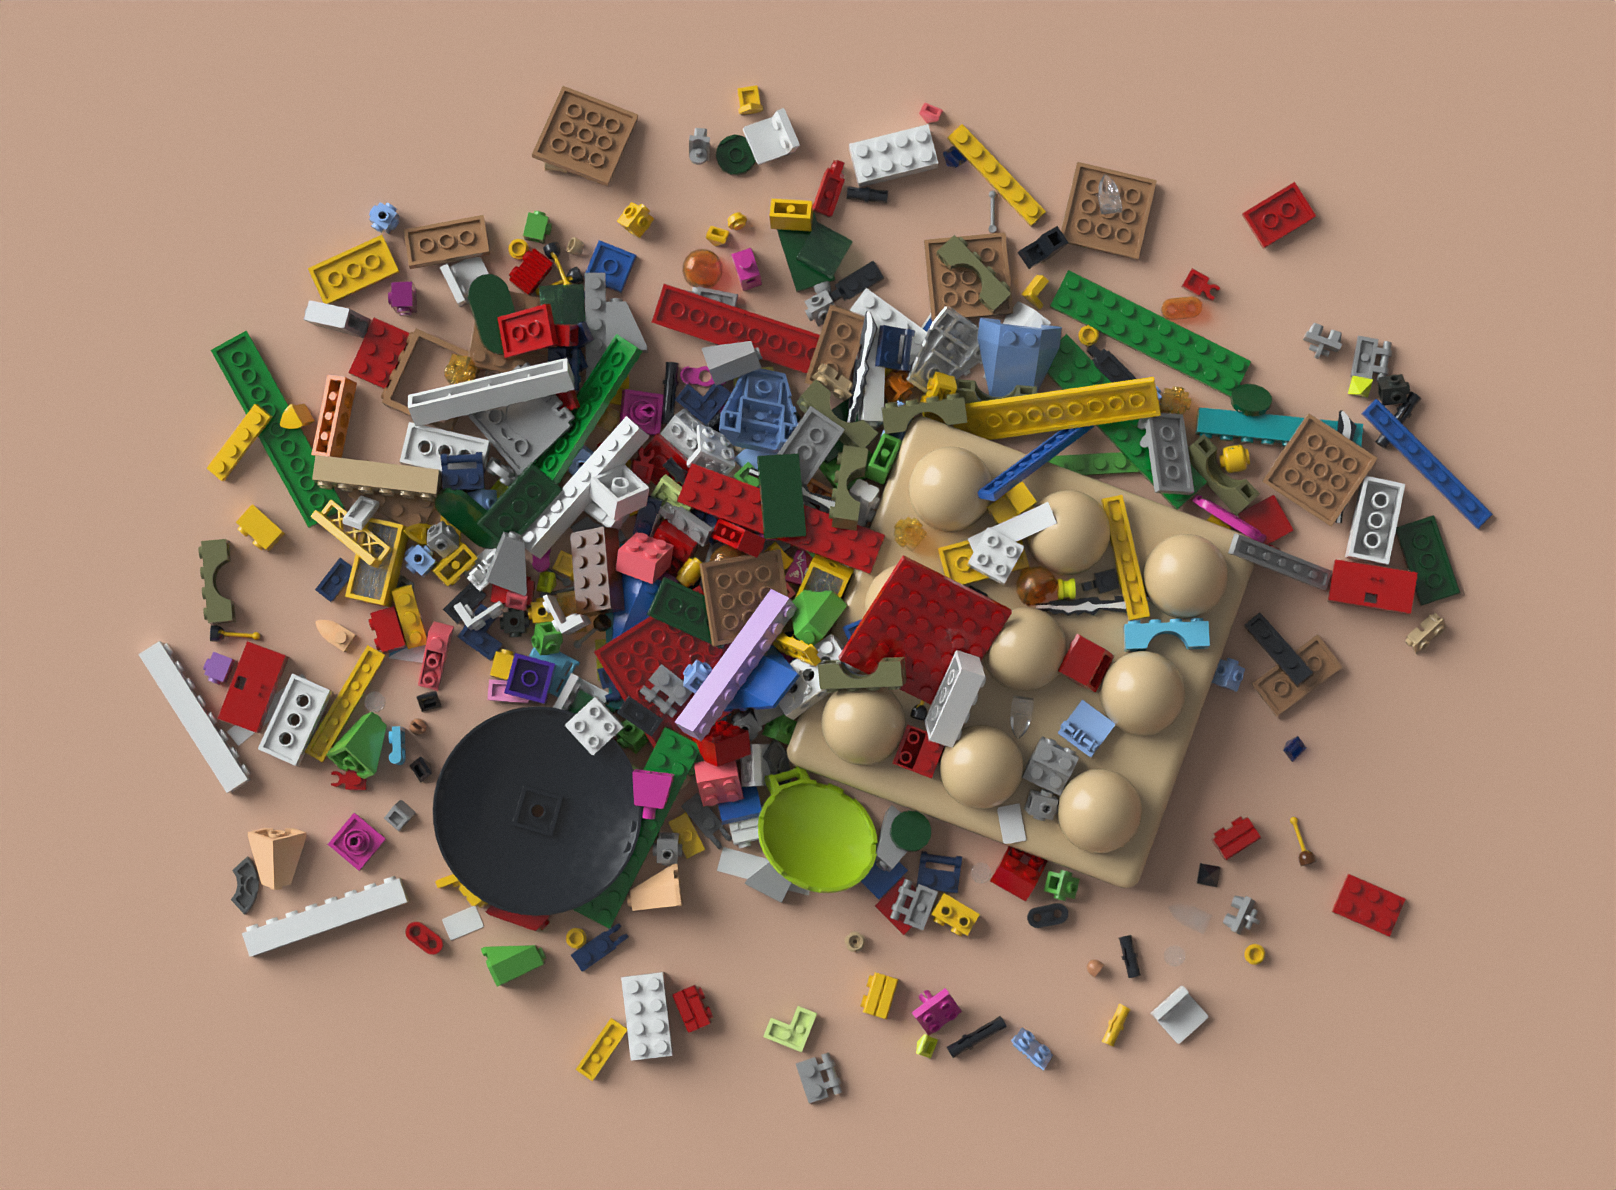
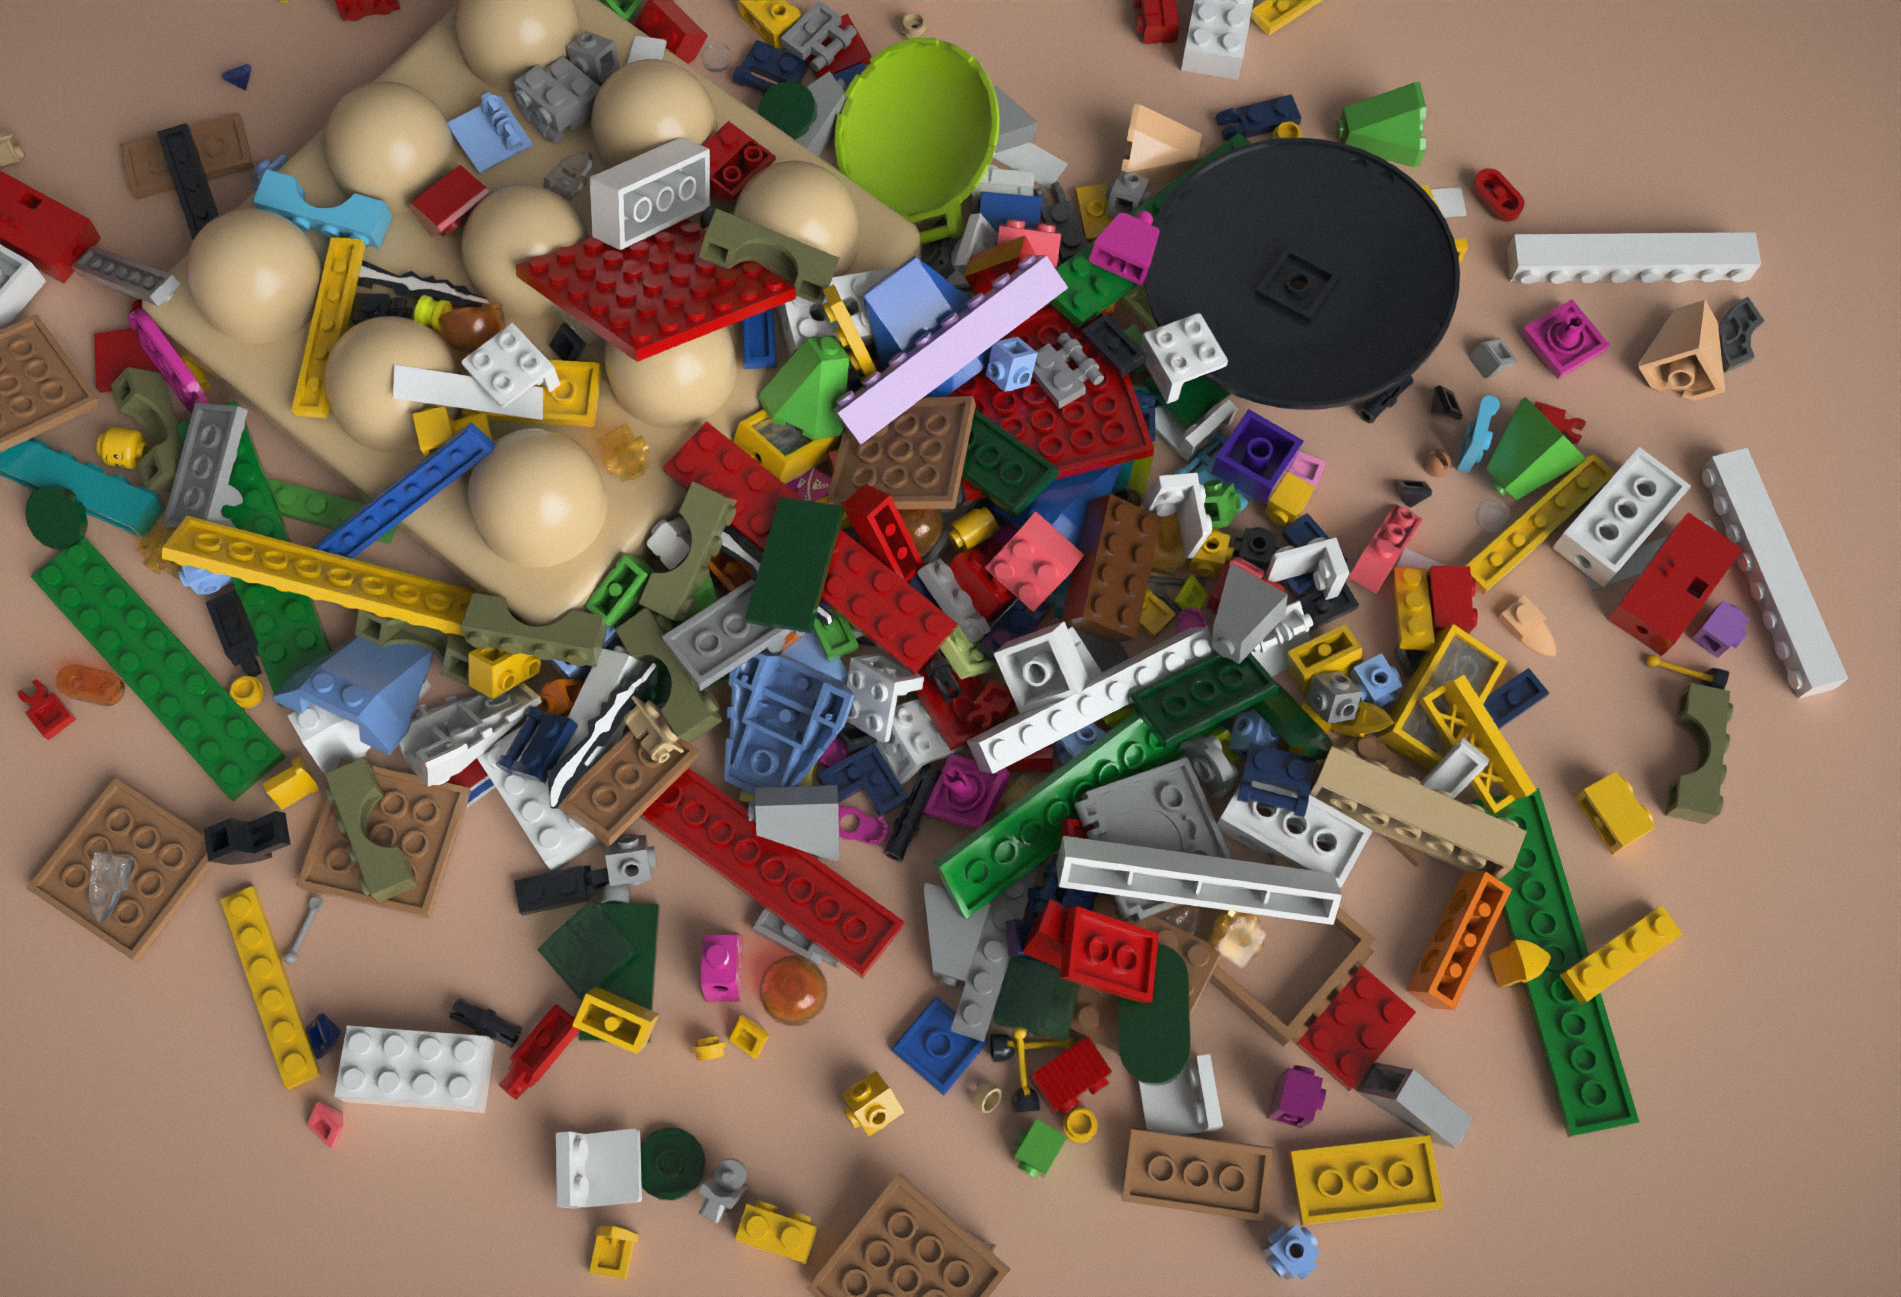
camera: 165 degrees left, 15 degrees down
(663, 136) = (776, 1233): none -> yellow brick

